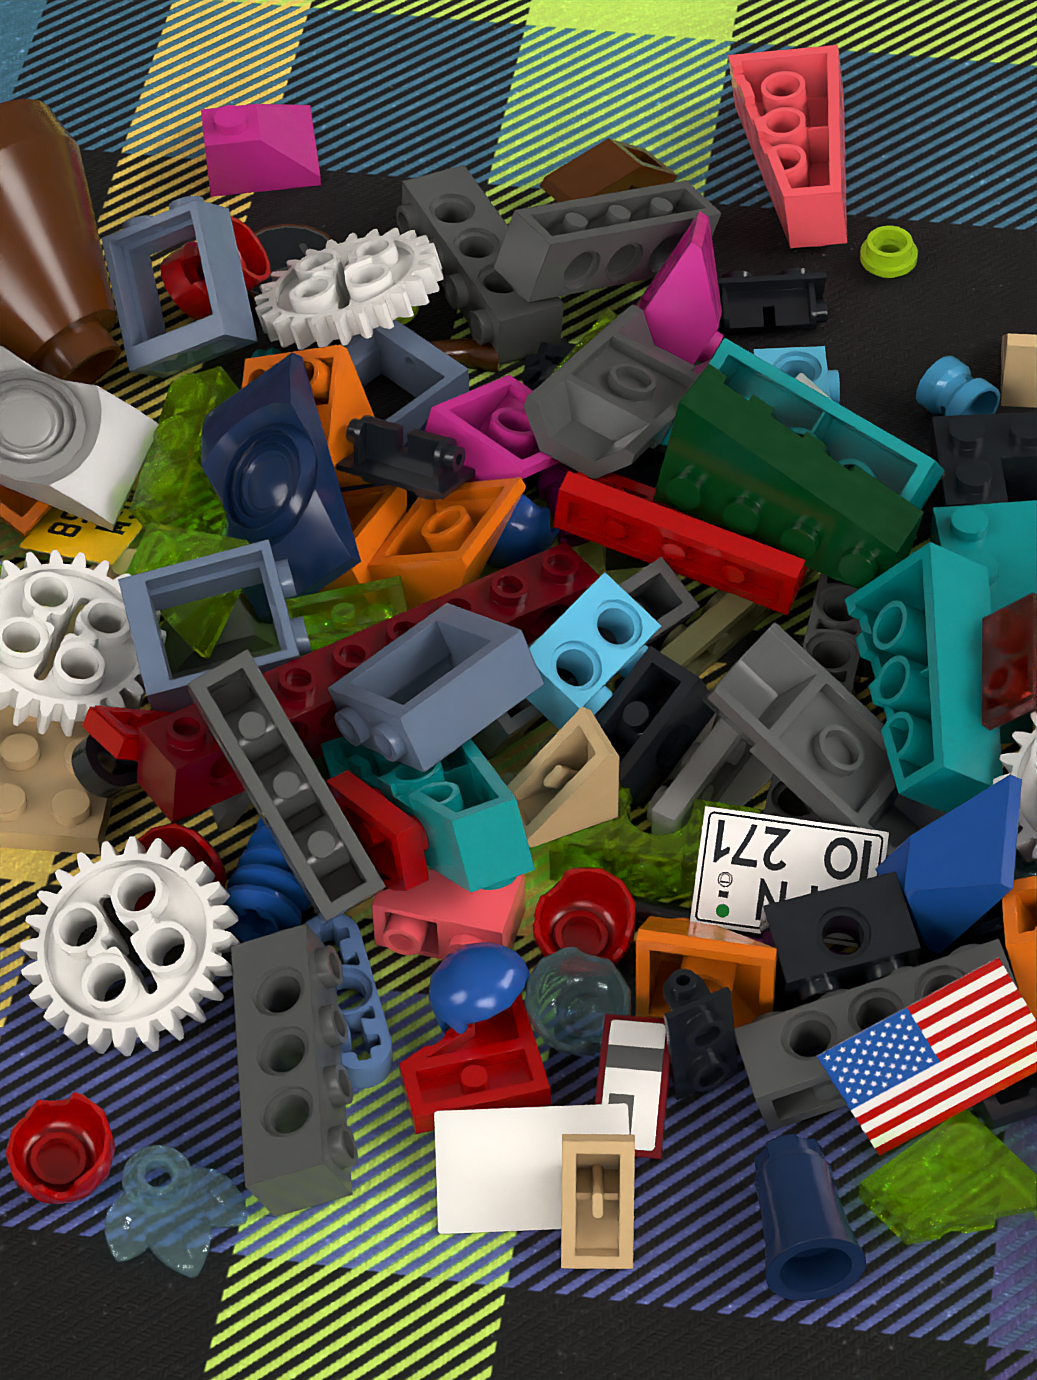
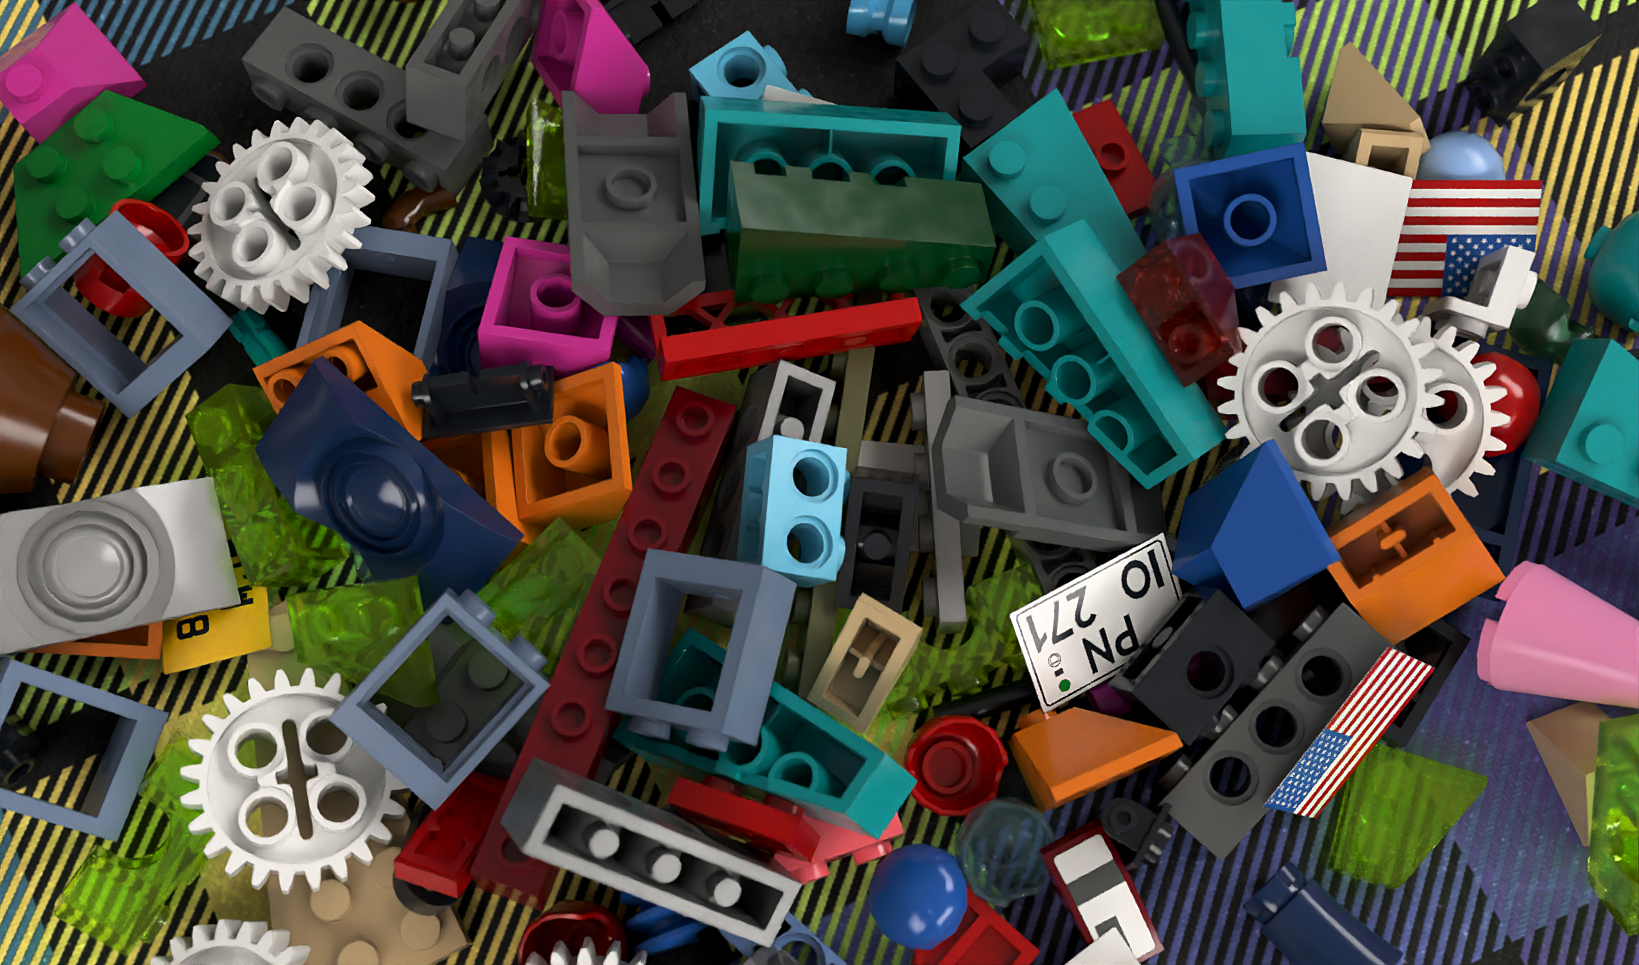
camera: 35 degrees left, 25 degrees up
(265, 197) = (94, 160): none -> green wing

